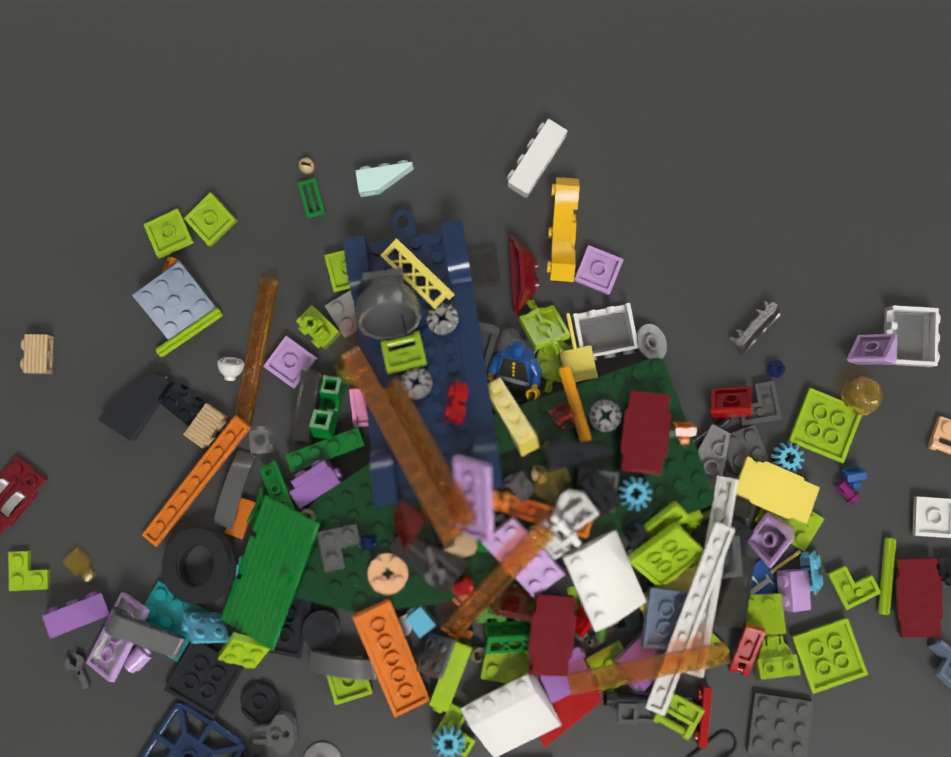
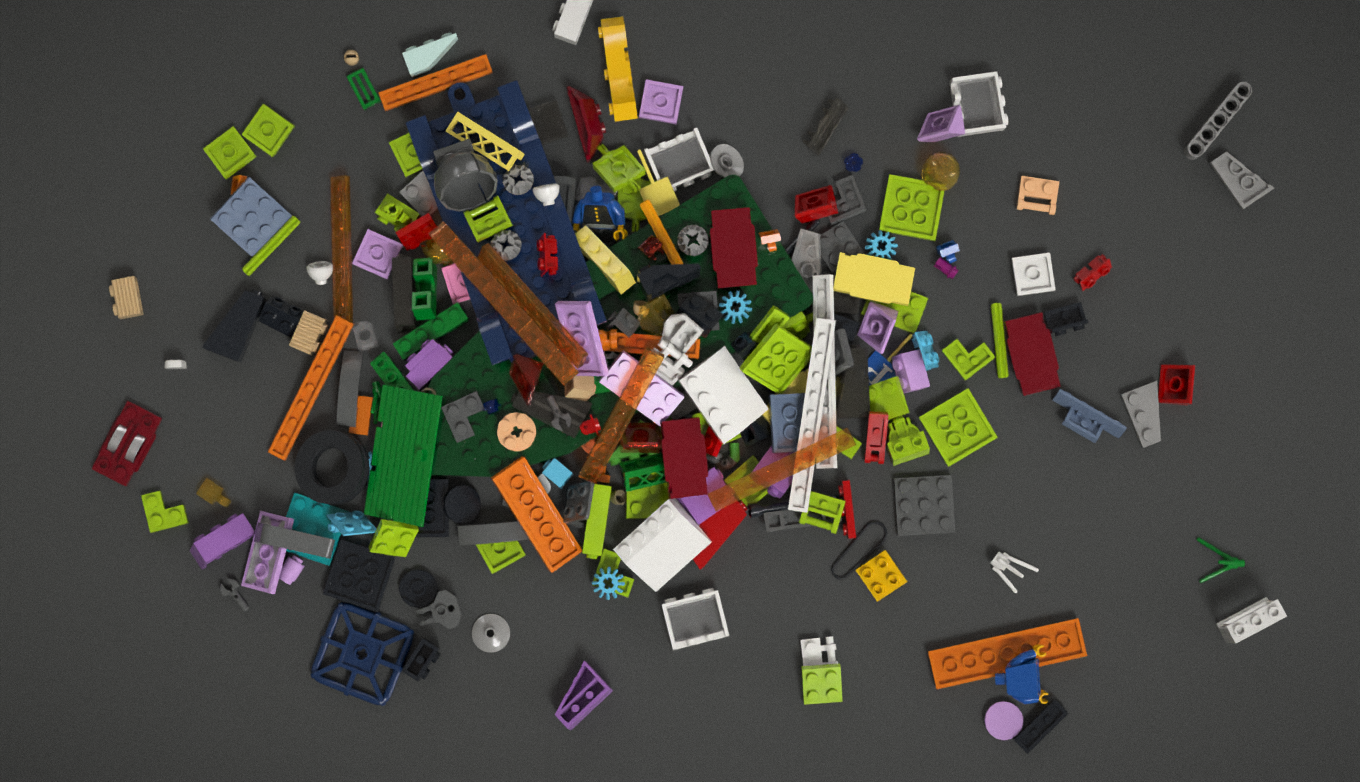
camera: 20 degrees left, 0 degrees up
(70, 429) = (175, 364): none -> white tile
(331, 349) = (416, 232): none -> red plate
(382, 206) = (435, 82): none -> orange plate
(468, 338) = (546, 193): none -> white brick

